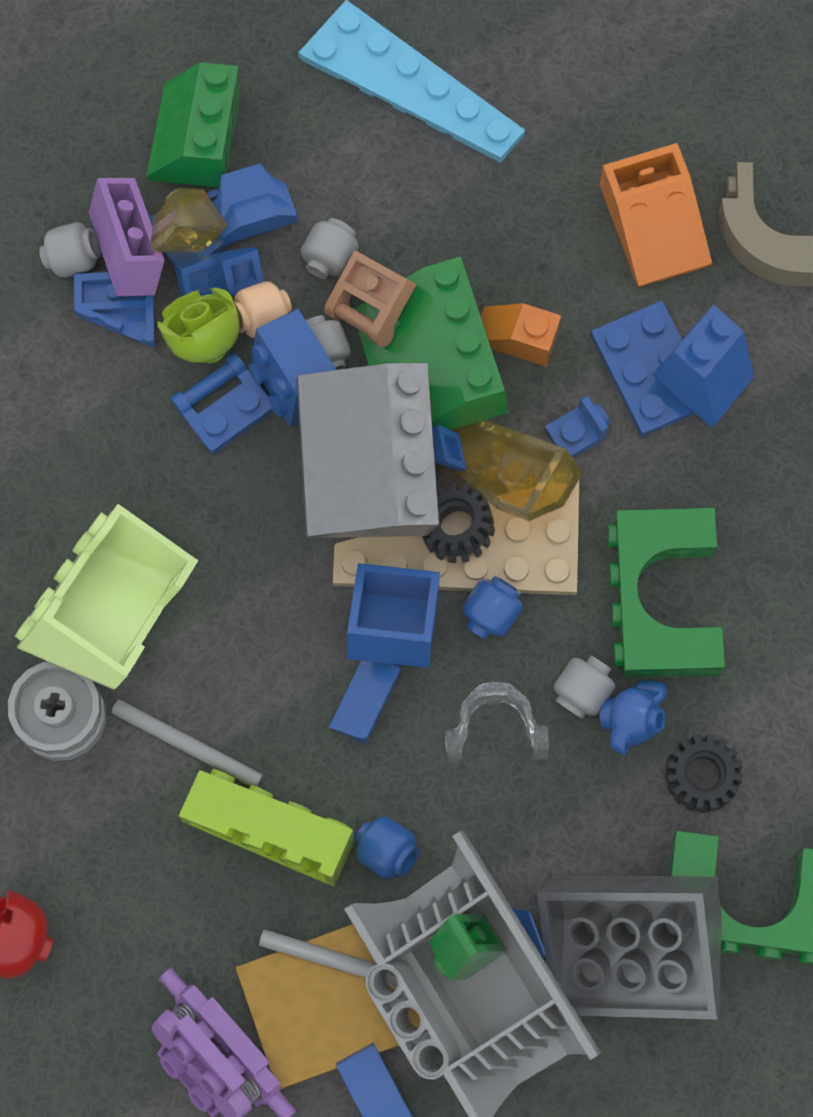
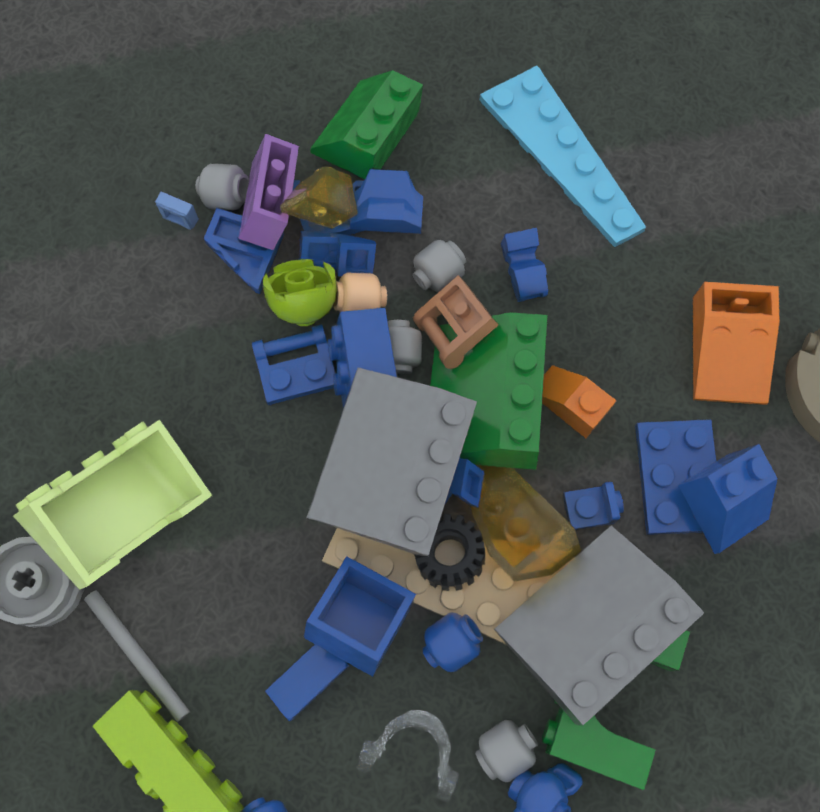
camera: 20 degrees right, 0 degrees up
(32, 292) = (176, 210): none -> medium blue tile
(421, 221) = (526, 271): none -> blue leg
(622, 531) = (598, 624): none -> flat silver slope

